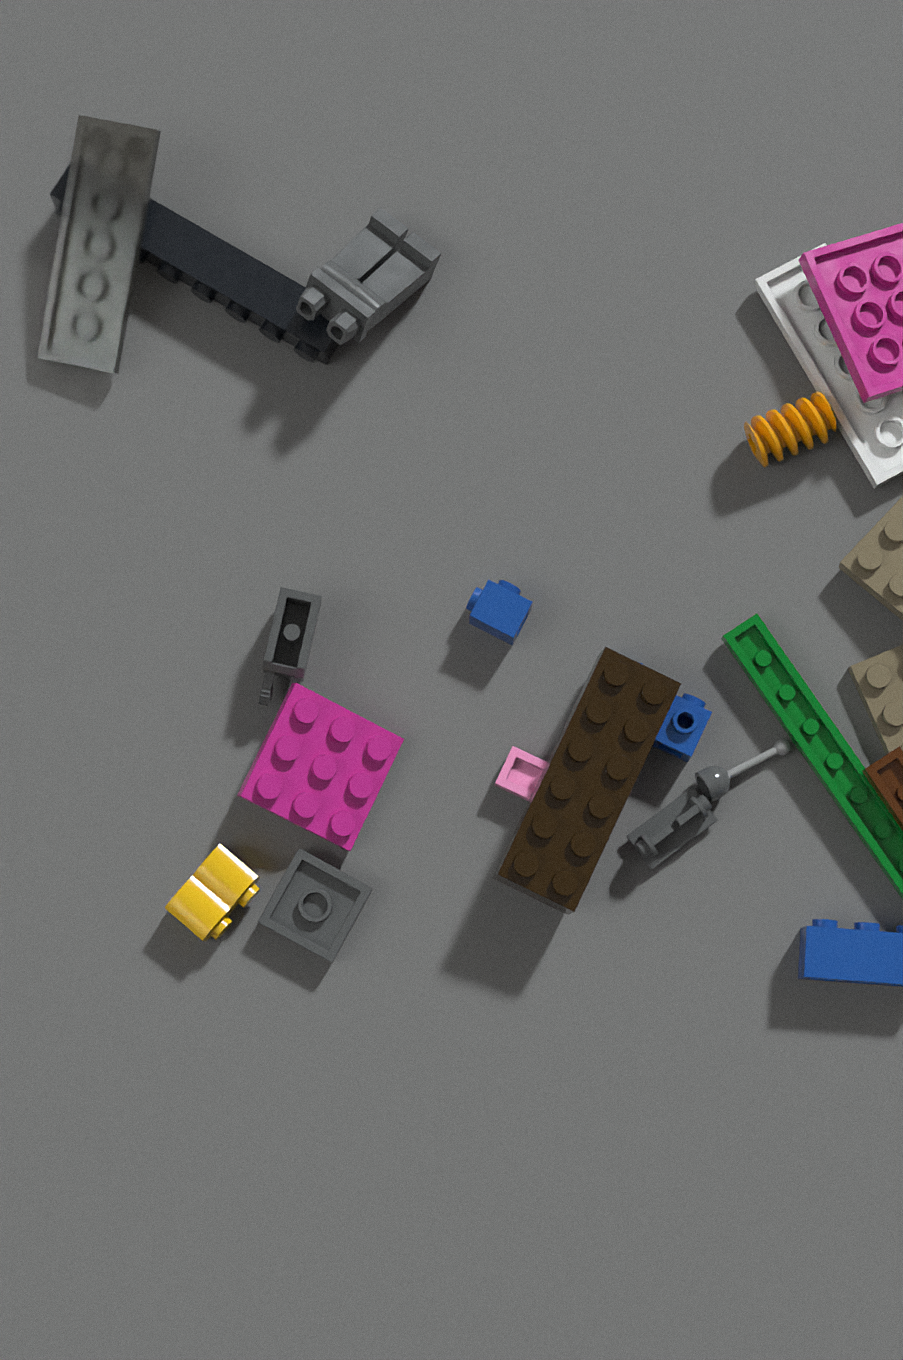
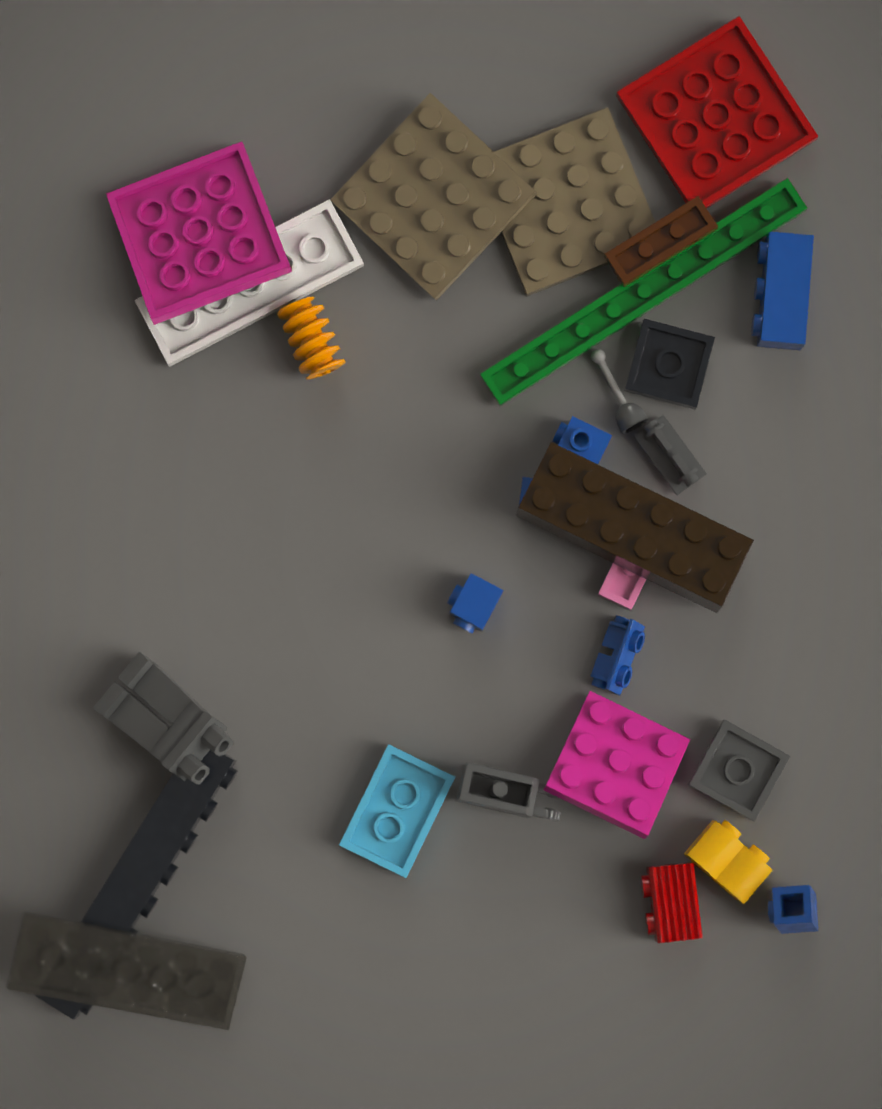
camera: 90 degrees left, 5 degrees up
(158, 965) = (793, 909): none -> blue brick
(167, 831) = (673, 902): none -> red brick
(270, 531) = (397, 811): none -> medium azure plate
(425, 767) = (625, 640): none -> blue hinge
(776, 826) = (669, 364): none -> black plate

